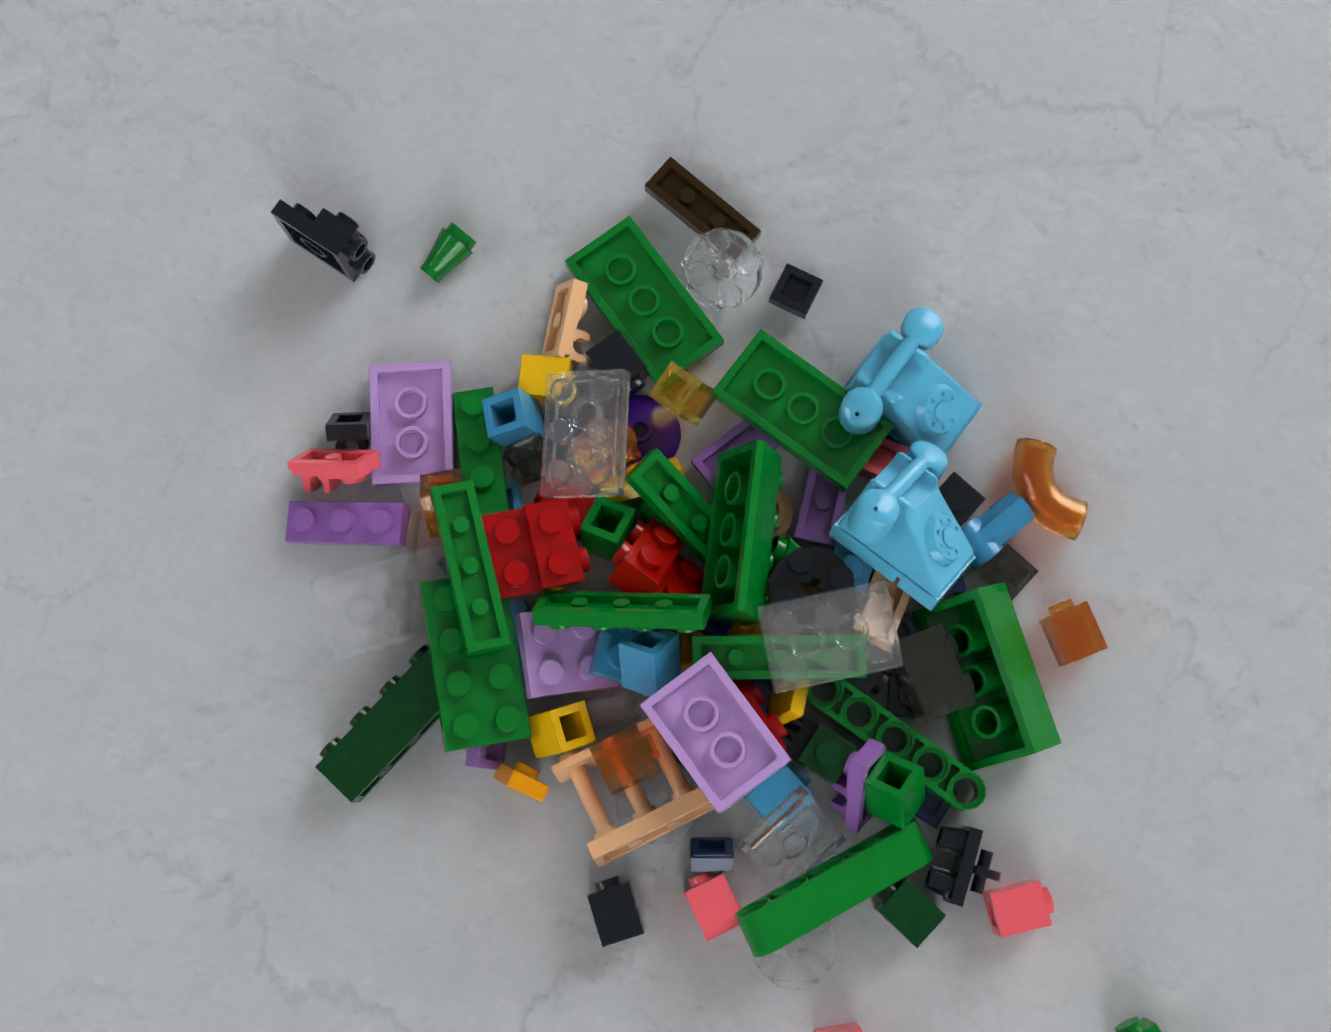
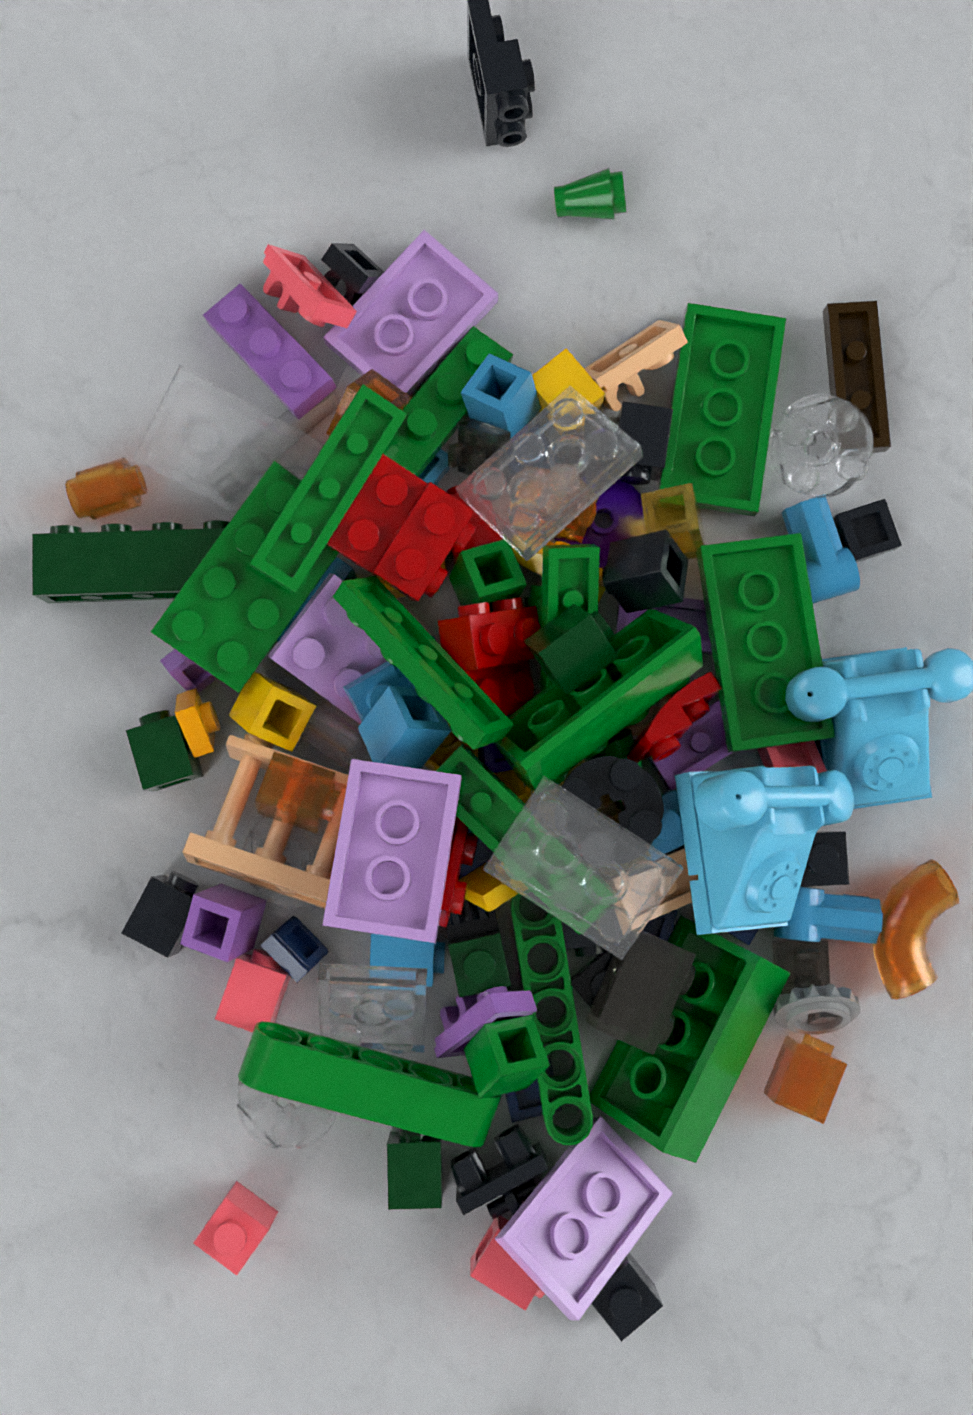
camera: 35 degrees right, 5 degrees up
(330, 699) = (106, 489): none -> clear orange brick
(518, 817) = (162, 752): none -> dark green brick
(655, 880) = (223, 922): none -> medium lavender brick
(696, 436) = (645, 571): none -> black brick
(698, 519) = (572, 647): none -> dark green brick
(795, 330) = (829, 565): none -> dark azure piece
(796, 503) = (662, 733): none -> red slope
(1031, 838) = (584, 1219): none -> lavender plate
(1039, 587) = (816, 1009): none -> light grey gear
(1095, 860) = (627, 1298): none -> black brick

